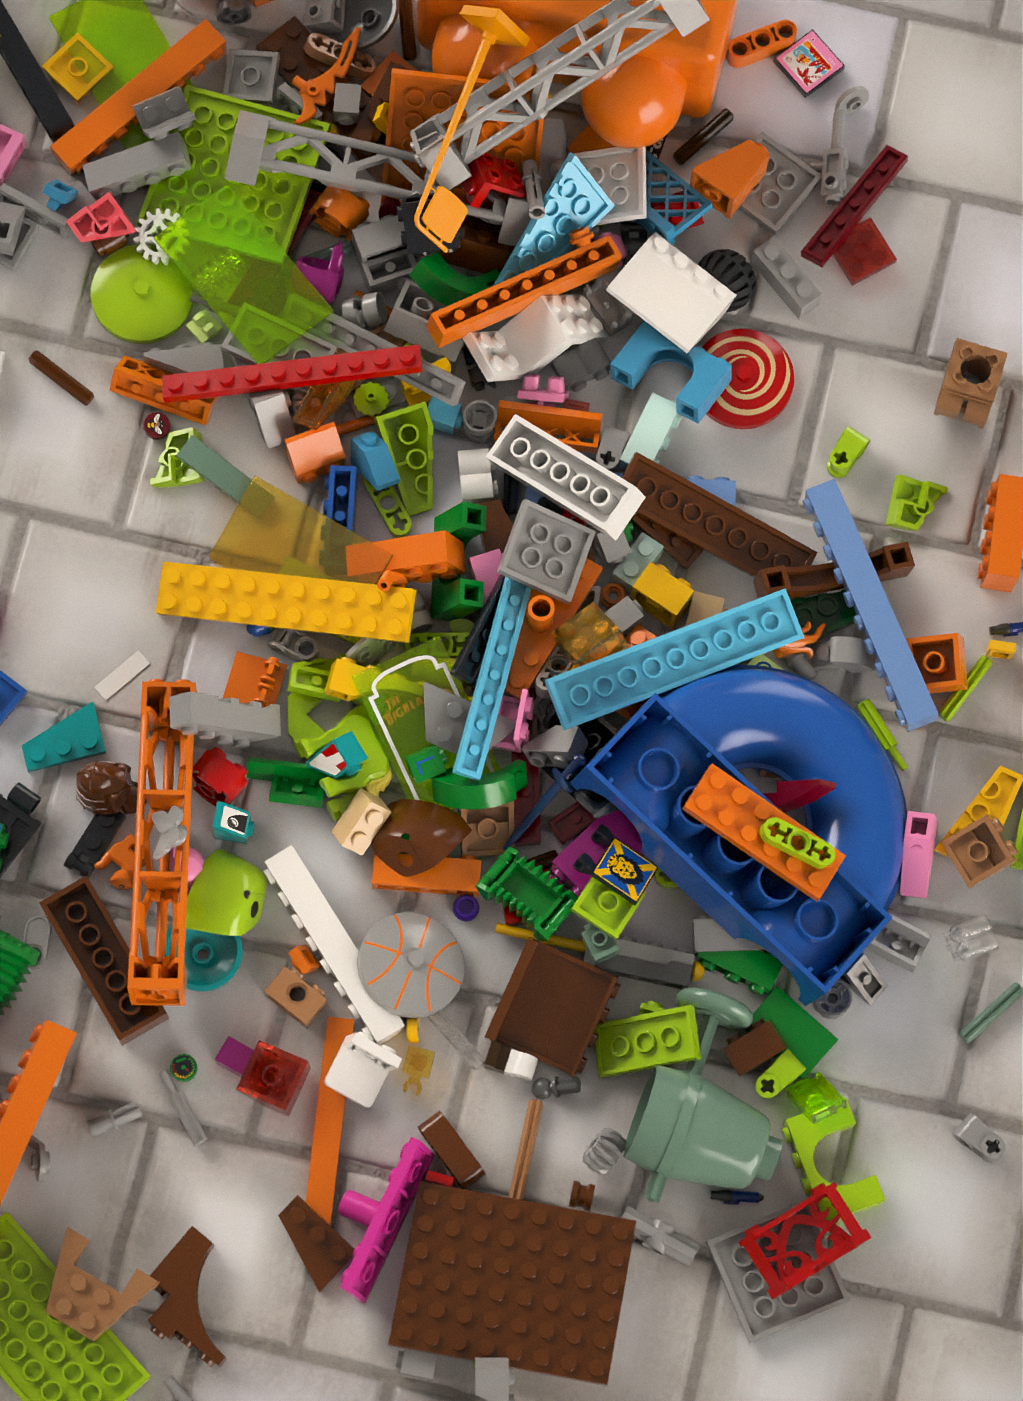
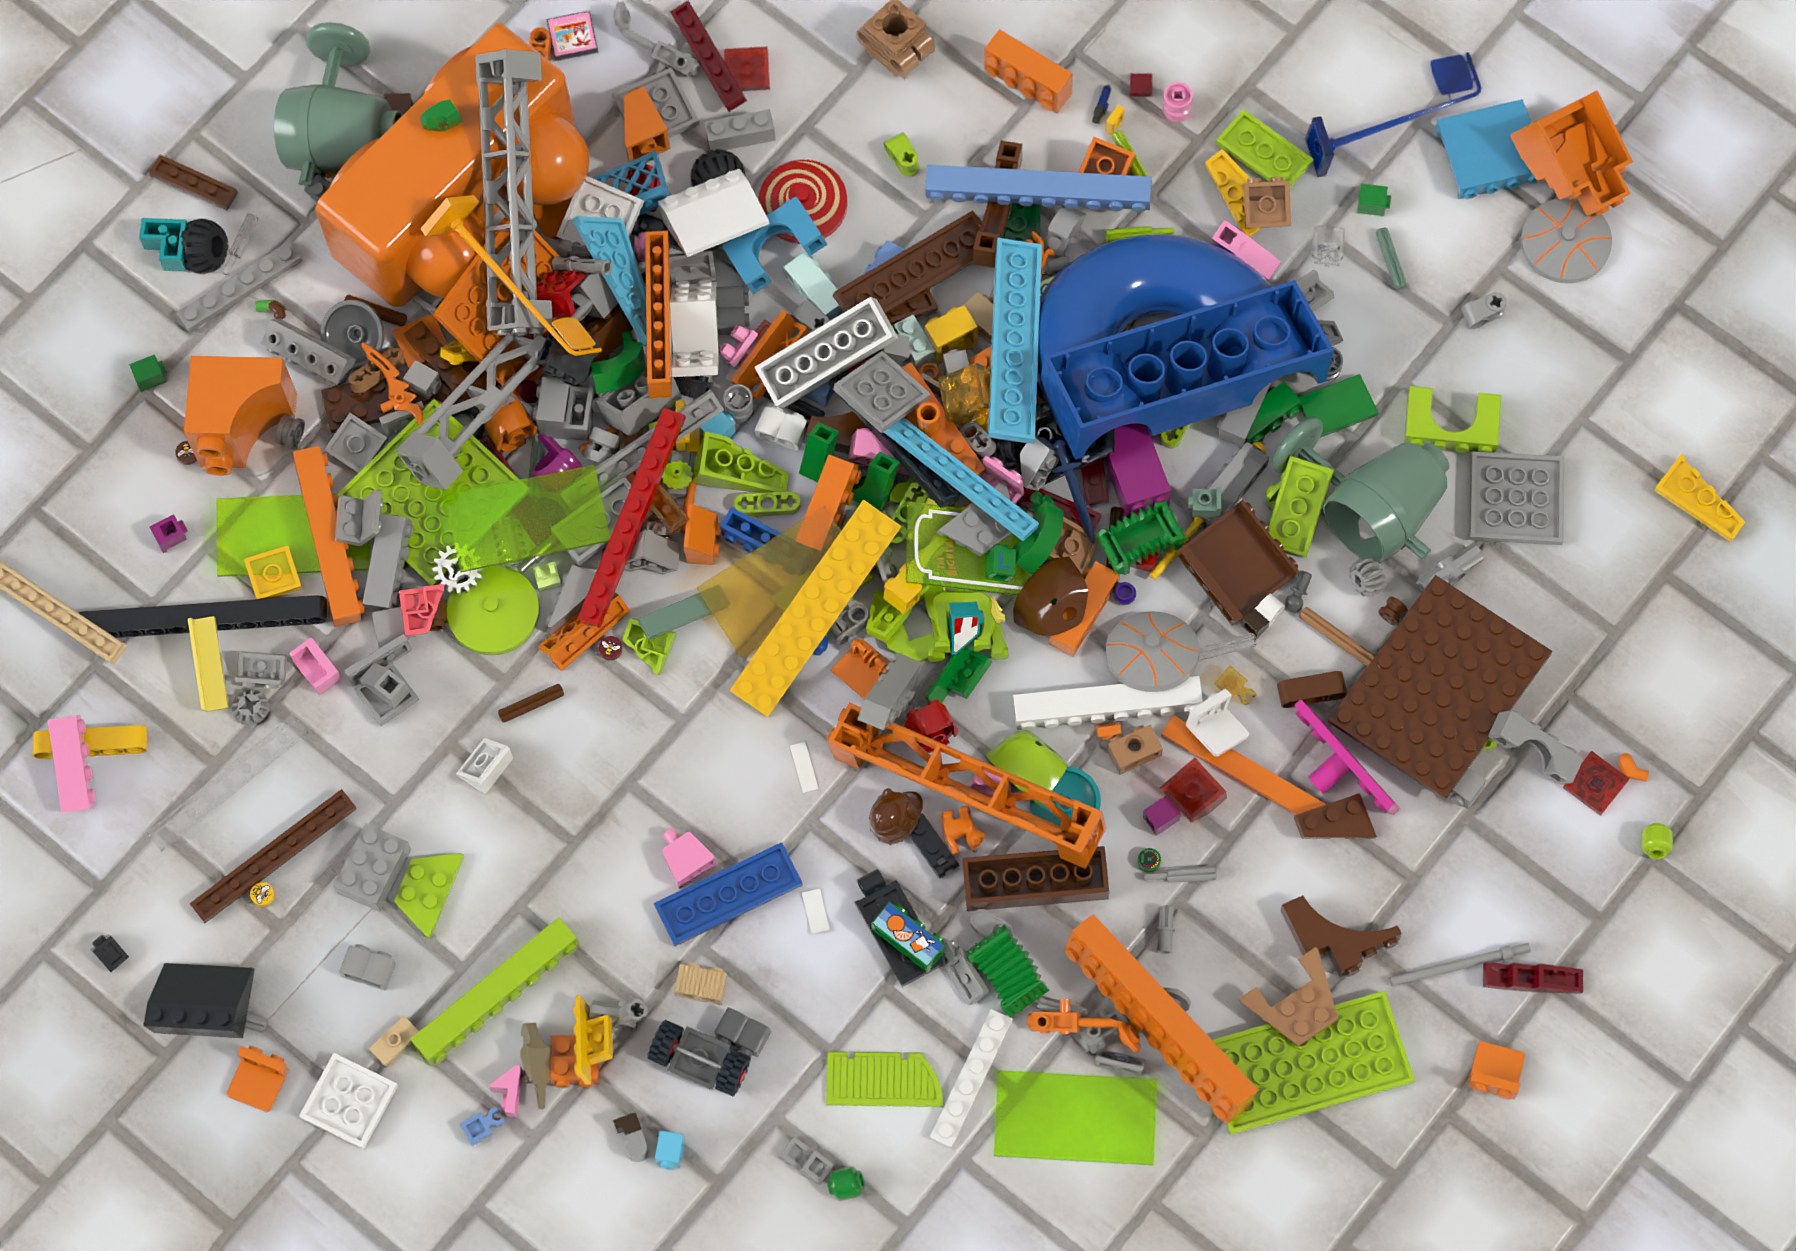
camera: 55 degrees left, 5 degrees down
(59, 194) = (378, 630): dark azure tile -> none
(66, 741) = (838, 832): teal wing -> none
(170, 830) = (967, 767): light grey animal -> none
(232, 823) = (972, 734): teal slope -> none
(361, 821) = (1021, 634): tan brick -> none
(373, 460) = (729, 493): dark azure slope -> none
(391, 578) = (846, 515): orange arm -> none
(413, 1030) = (1205, 675): yellow tile -> none
(439, 1179) = (1328, 710): red tile -> none
(581, 236) = (636, 252): orange plate -> none
(604, 908) = (1181, 476): lime plate -> none
(619, 866) = (1158, 455): flag -> none
(703, 136) = (590, 138): dark brown axle -> none
(735, 1197) = (1445, 503): piece -> none
(738, 815) = (1189, 332): orange plate -> none
(754, 1047) = (1338, 432): reddish brown brick -> none
(782, 1071) = (1368, 423): lime piece -> none
(798, 793) = (1163, 304): dark red slope -> none
(808, 839) = (1209, 319): lime beam -> none
(816, 1098) = (1399, 407): clear neon green plate -> none
(842, 1241) = (1528, 490): red fence -> none
(912, 502) = (966, 128): lime slope -> none

